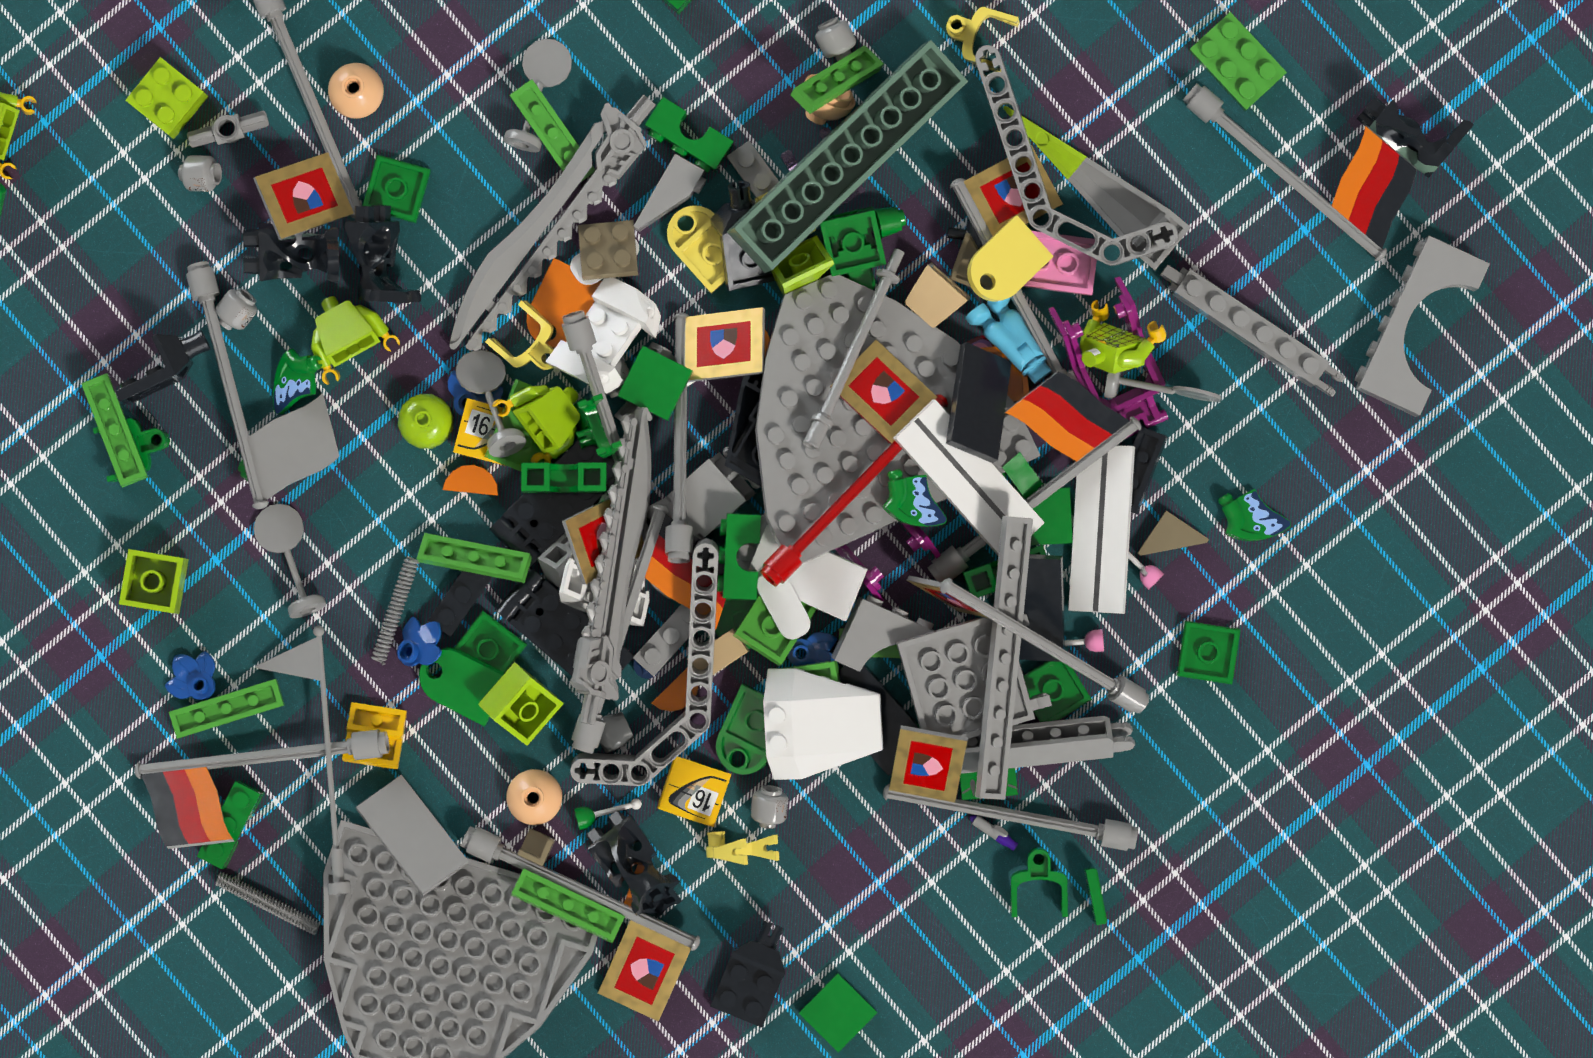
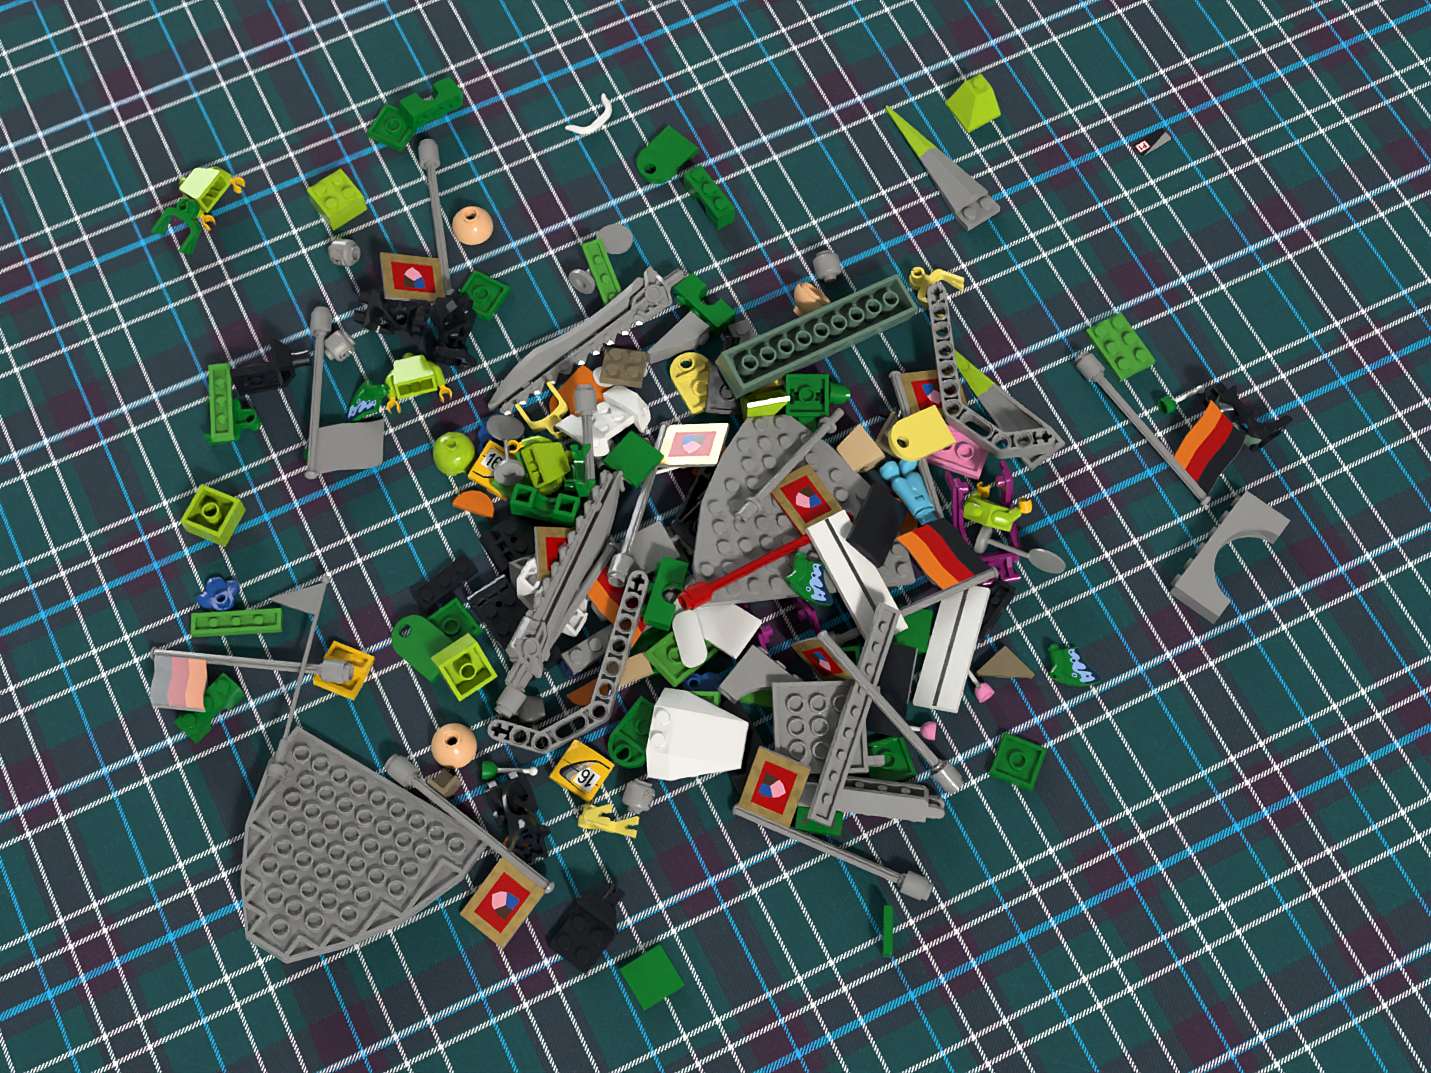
camera: 10 degrees right, 20 degrees down
(242, 125) = (364, 229): light grey axle -> none
(267, 903) = (219, 778): light grey axle -> none
(279, 531) = (321, 505): light grey piece -> none
(395, 610) = (391, 579): light grey piece -> none
(412, 835) = (348, 748): light grey tile -> none
(419, 643) = (399, 608): blue plate -> none
(474, 557) = (461, 554): bright green plate -> none
(567, 905) = (455, 832): bright green plate -> none
(837, 79) = (821, 285): bright green plate -> none
(996, 832) = (816, 861): light grey piece -> none
(1022, 475) = (898, 589): green sticker -> none
(1038, 871) = (844, 899): green piece -> none
(1251, 328) = (1097, 528): light grey hinge -> none
(1313, 131) = (1168, 404): none -> green hinge

